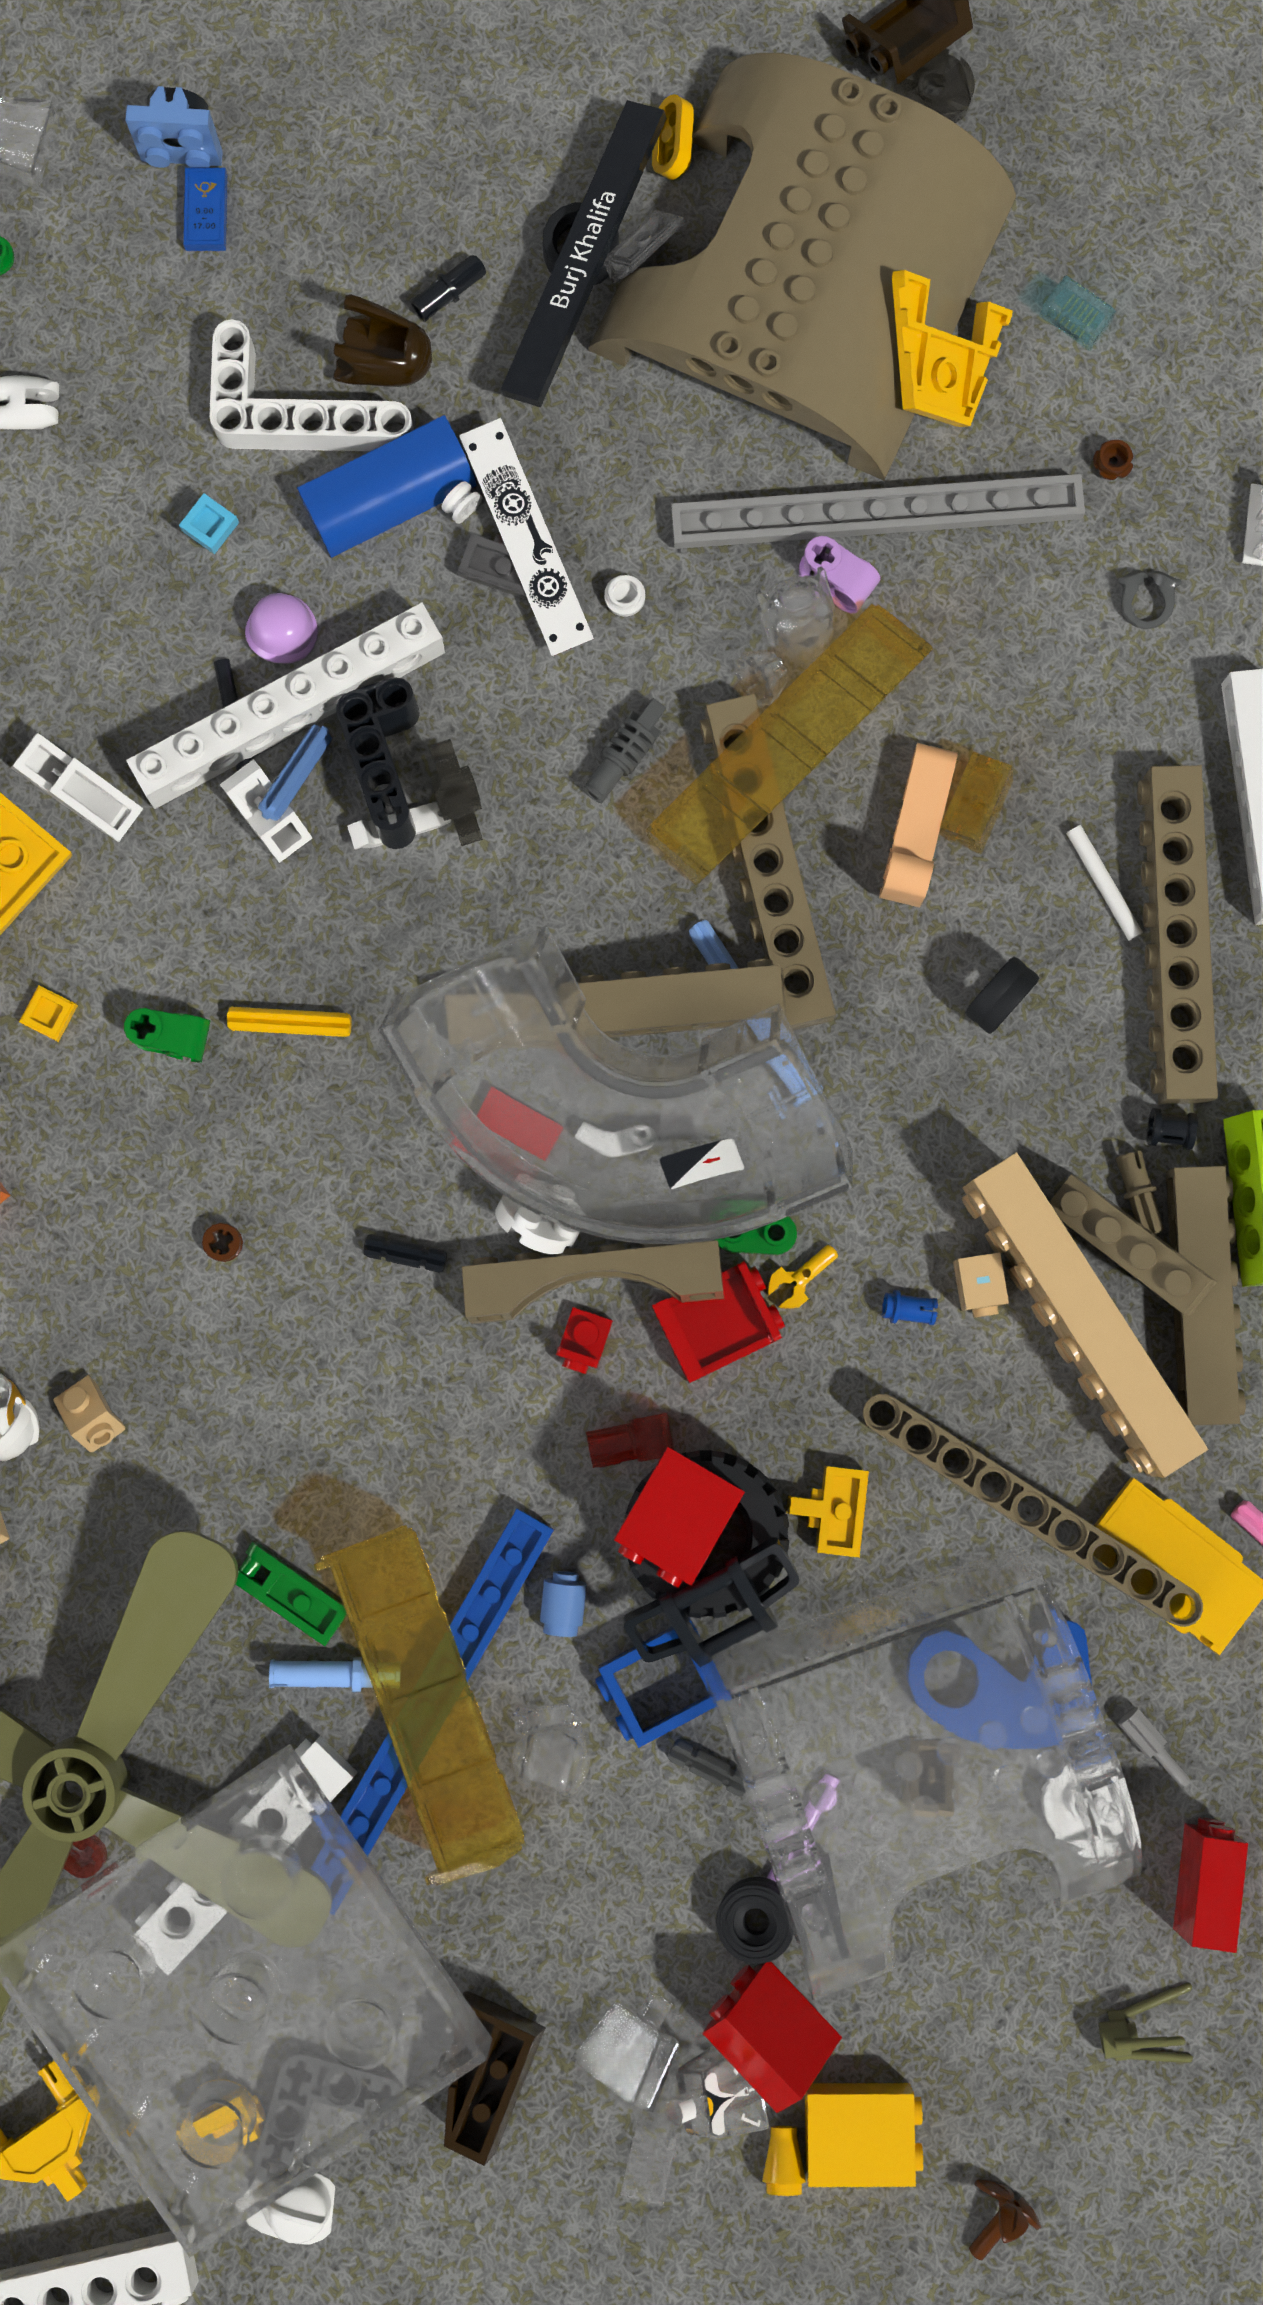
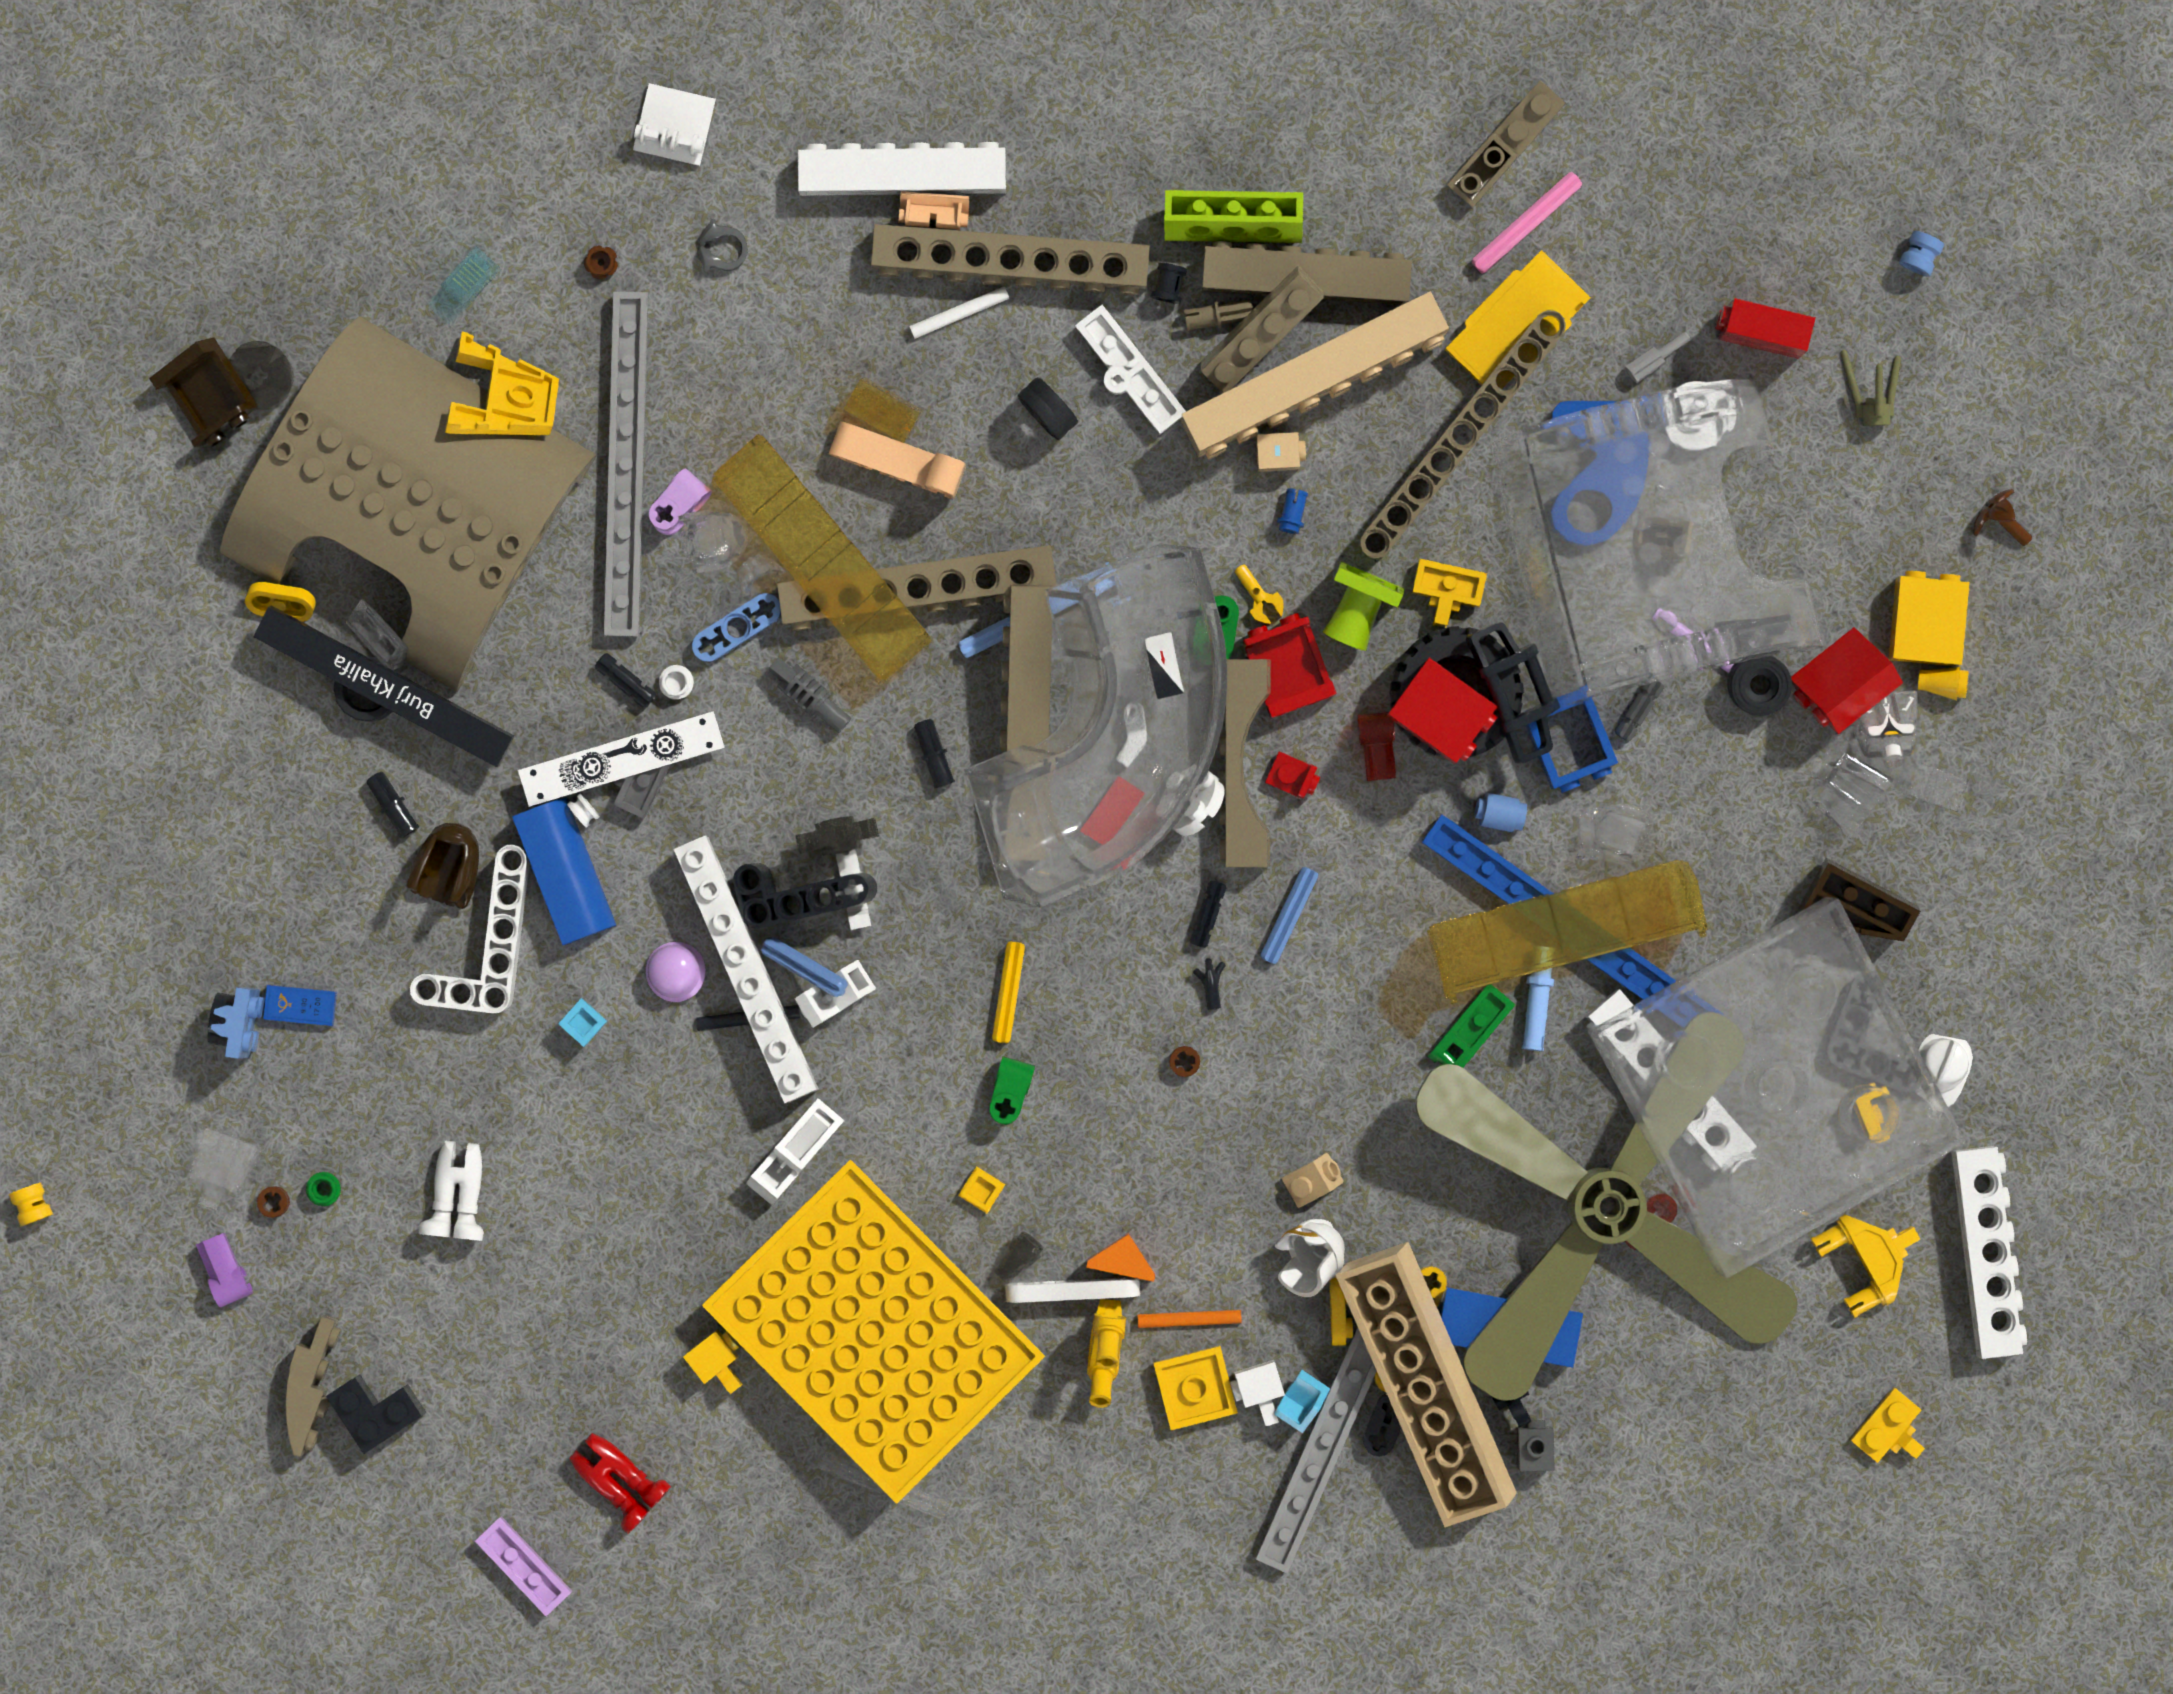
camera: 85 degrees left, 5 degrees up
(320, 1265) = (1211, 983): none -> black bar
(412, 1353) = (1289, 915): none -> medium blue axle
(569, 903) = (933, 753): none -> black axle
(620, 536) = (625, 680): none -> black axle
(670, 642) = (719, 648): none -> medium blue beam
(802, 1401) = (1359, 605): none -> lime plant
(1059, 1091) = (1129, 370): none -> white hinge
(1228, 847) = (947, 210): none -> light nougat hinge

